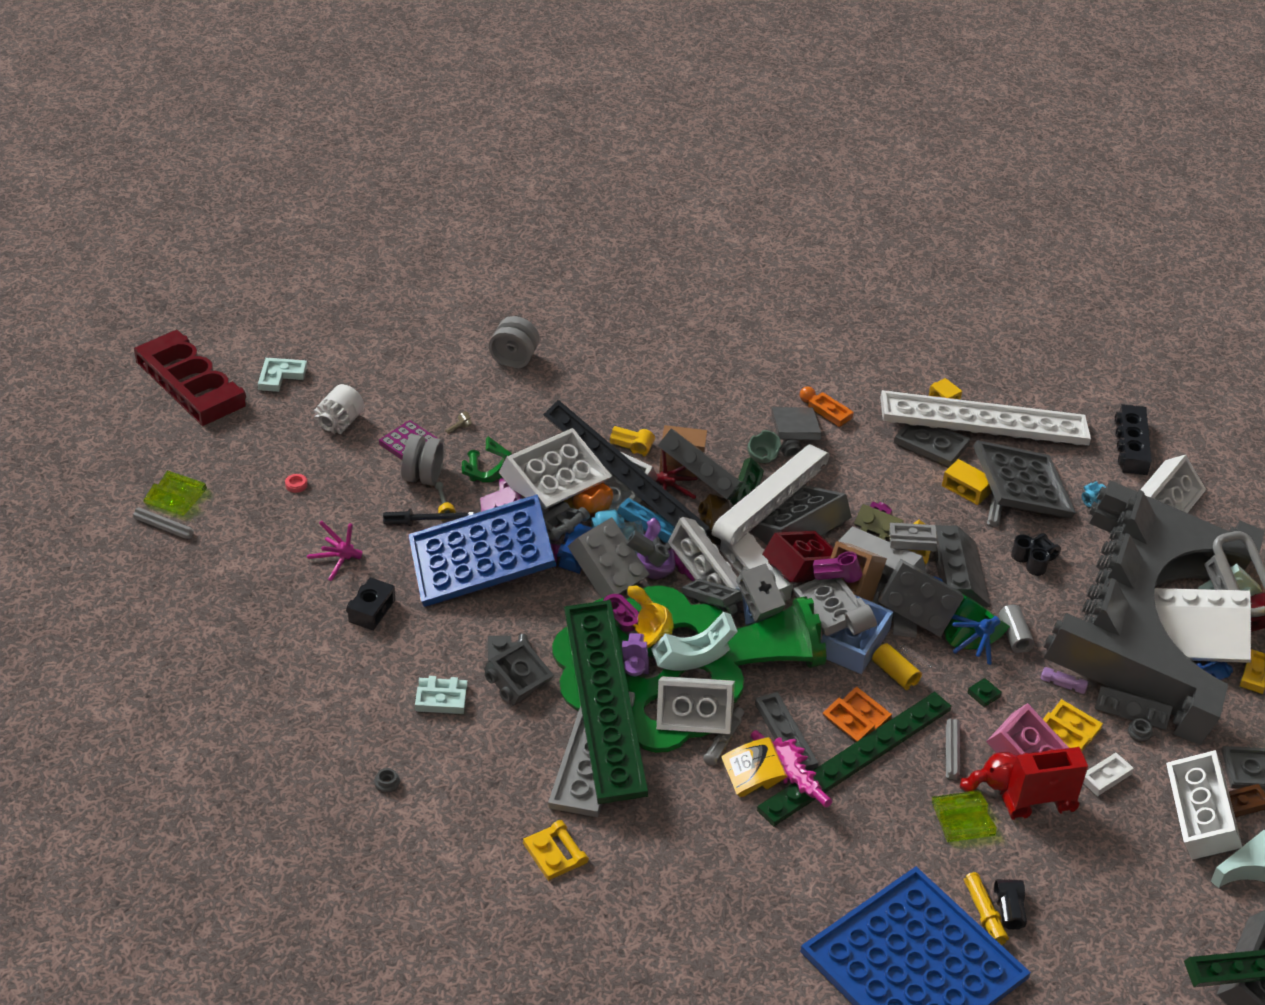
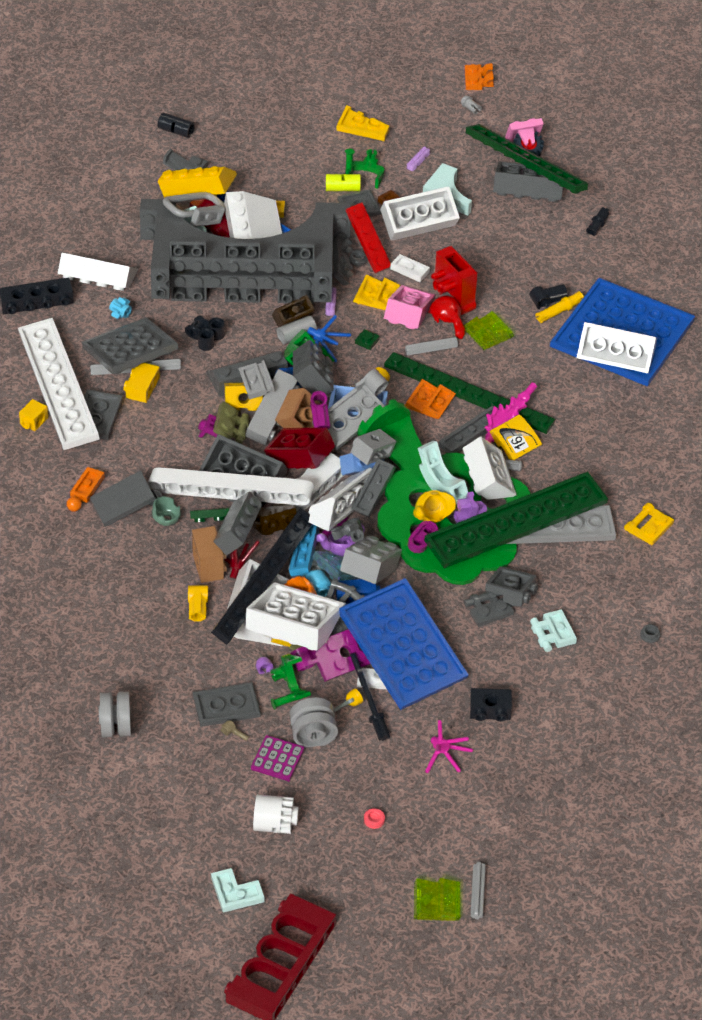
camera: 110 degrees left, 5 degrees up
(496, 422) = (226, 704): none -> dark grey tile
(871, 923) = (616, 347): none -> white slope
(1039, 623) = (293, 311): none -> dark brown brick
(1158, 727) = (368, 237): none -> red plate

